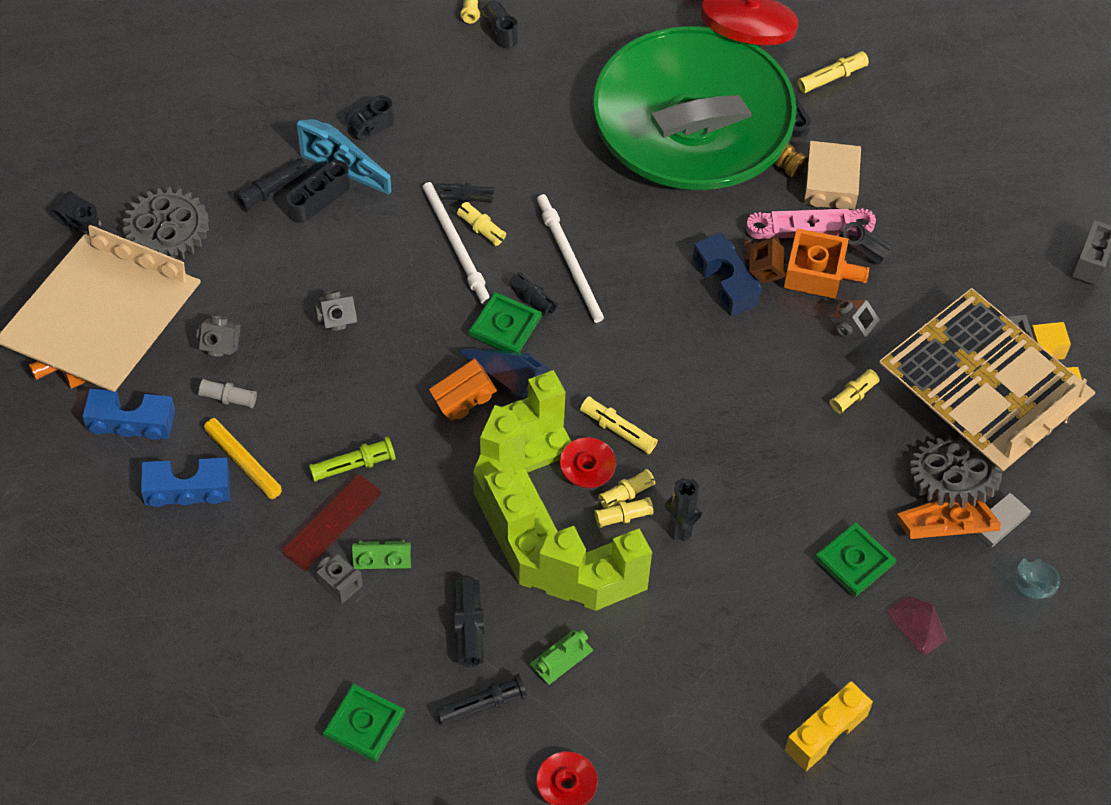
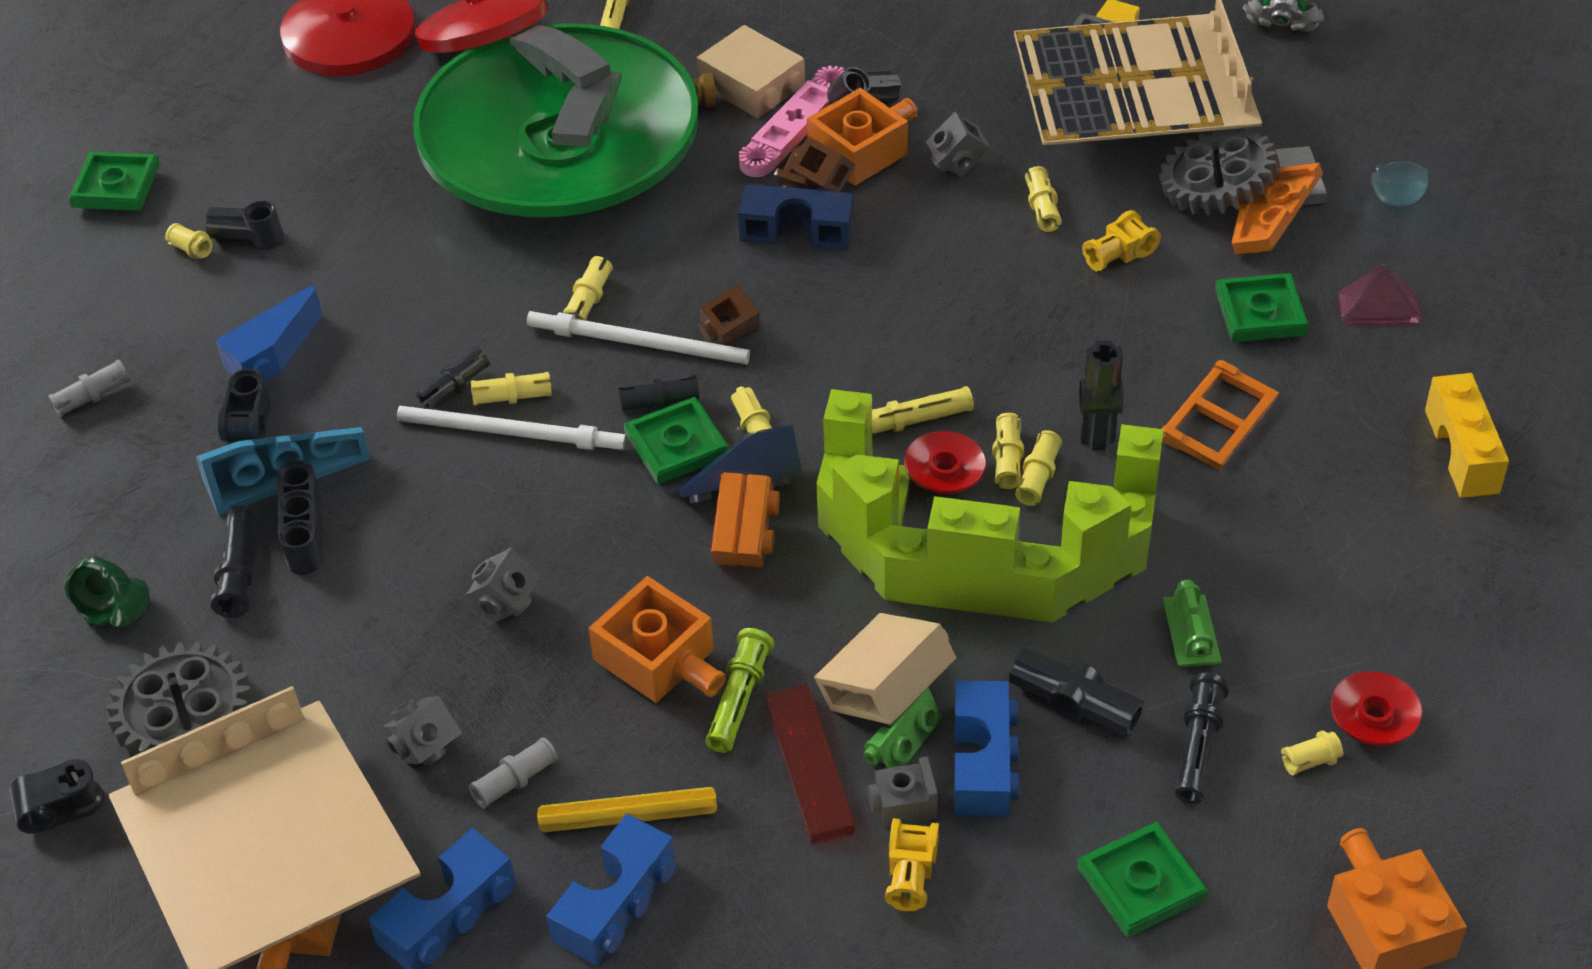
camera: 50 degrees left, 10 degrees down
(206, 148) = (105, 593): none -> dark green hair
(299, 605) = (910, 857): none -> yellow connector
(334, 41) = (89, 388): none -> light grey pin
(349, 402) = (656, 642): none -> orange brick
(377, 612) = (984, 777): none -> blue arch
(409, 518) = (885, 668): none -> tan brick
(425, 93) = (271, 337): none -> blue slope
(513, 764) = (1313, 752): none -> light yellow pin
(550, 350) = (750, 411): none -> light yellow axle
(583, 211) = (589, 288): none -> light yellow pin
(610, 282) = (731, 307): none -> reddish brown brick
(731, 75) = (561, 55): none -> dark grey slope
(746, 603) = (1242, 427): none -> orange window
(850, 453) = (1123, 241): none -> yellow connector

